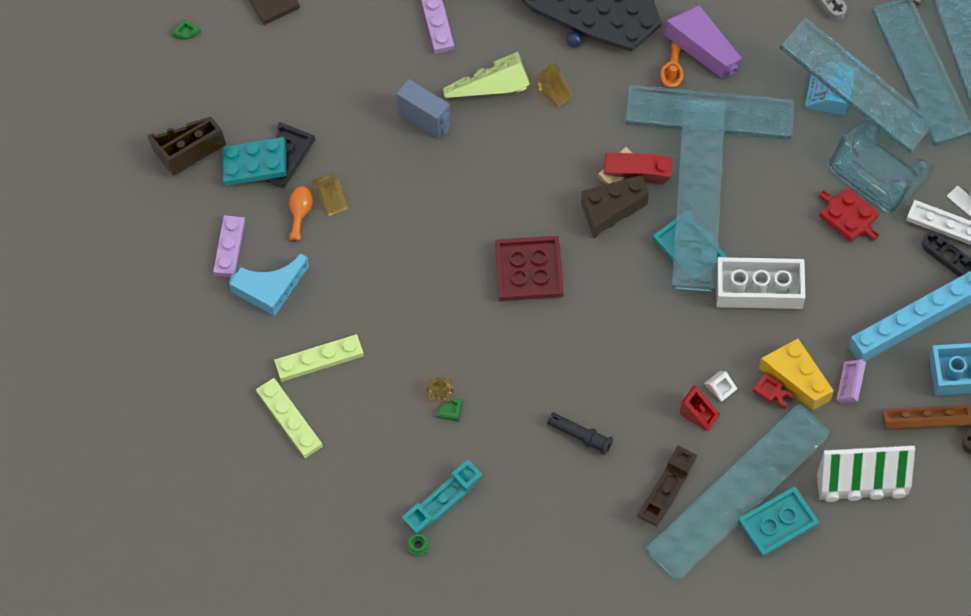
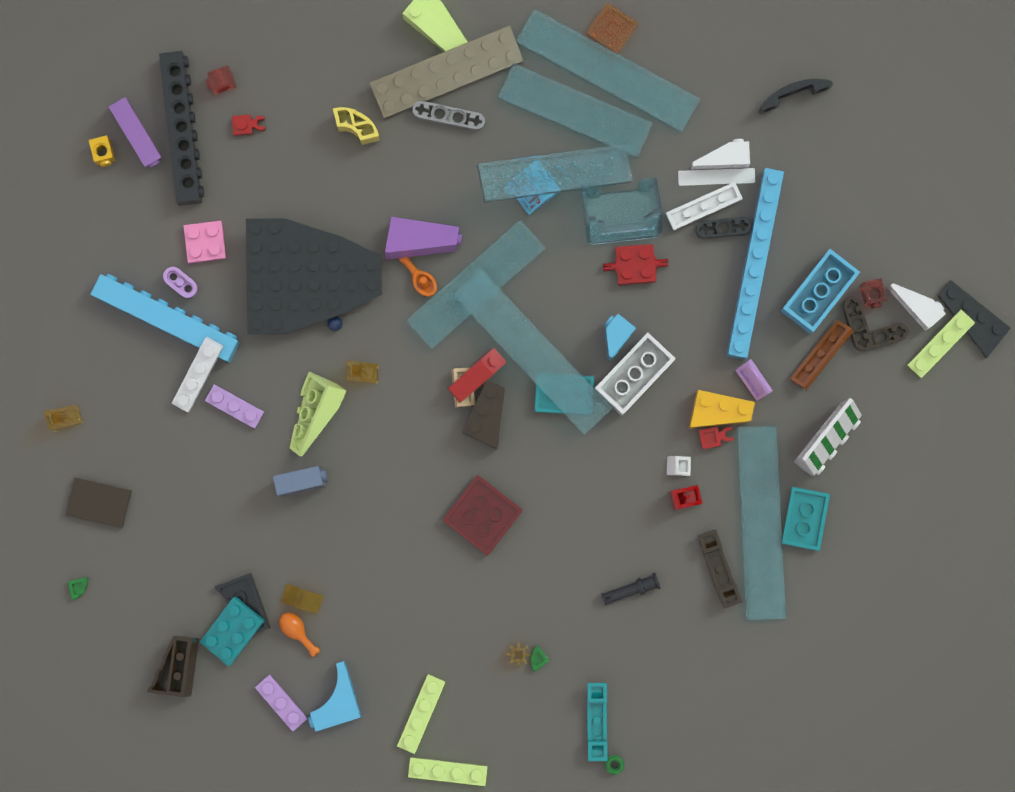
camera: 50 degrees left, 20 degrees up
(777, 240) = (616, 334): none -> medium azure slope

